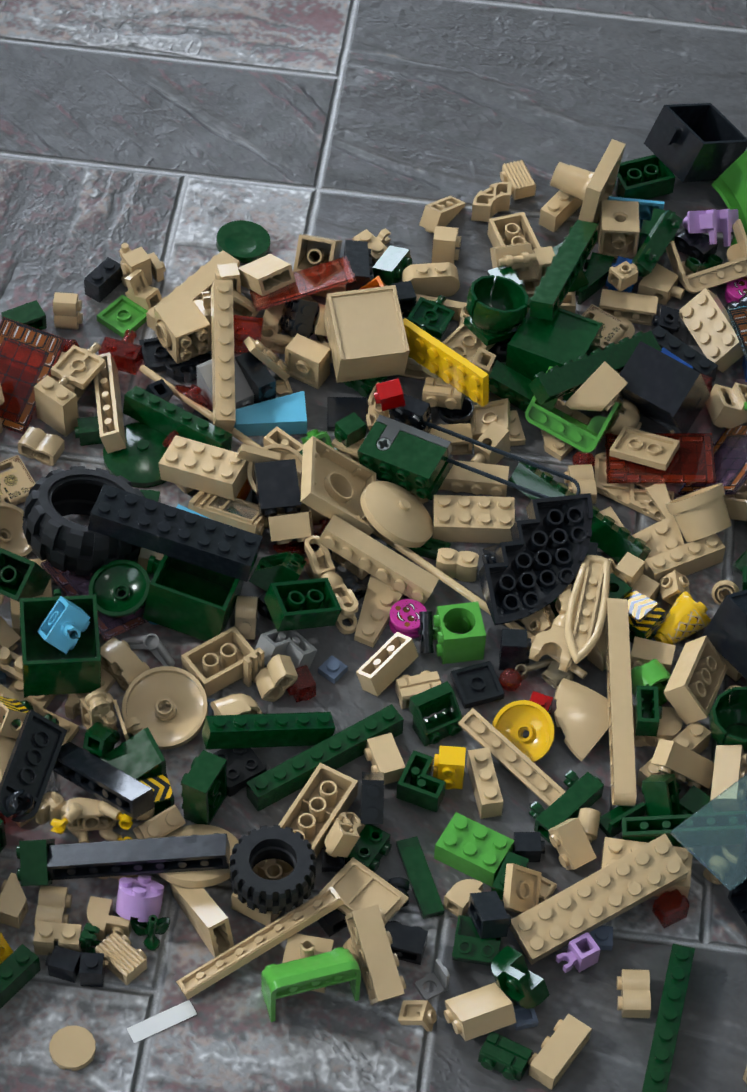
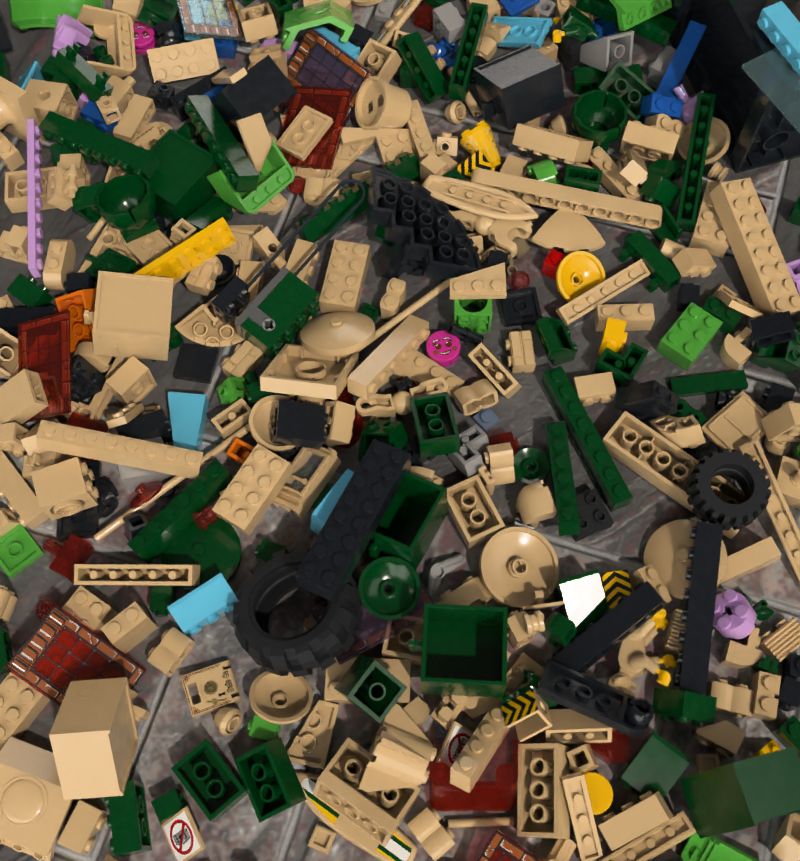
camera: 75 degrees left, 15 degrees up
(64, 625) = (463, 638): medium azure brick -> none
(78, 366) = (90, 597): tan plate -> none
(83, 449) = (203, 605): none -> medium azure slope
(204, 788) = (624, 540): dark green brick -> none
(257, 454) = (265, 431): tan tile -> none
(282, 704) = (535, 459): none -> dark green dish
(350, 429) = (231, 356): dark green brick -> none
(351, 649) = (476, 397): none -> tan brick
(389, 394) = (220, 304): red brick -> none
(478, 623) = (481, 284): none -> tan wing
(493, 237) = (34, 202): none -> lavender plate
(672, 351) = (229, 76): none -> tan tile

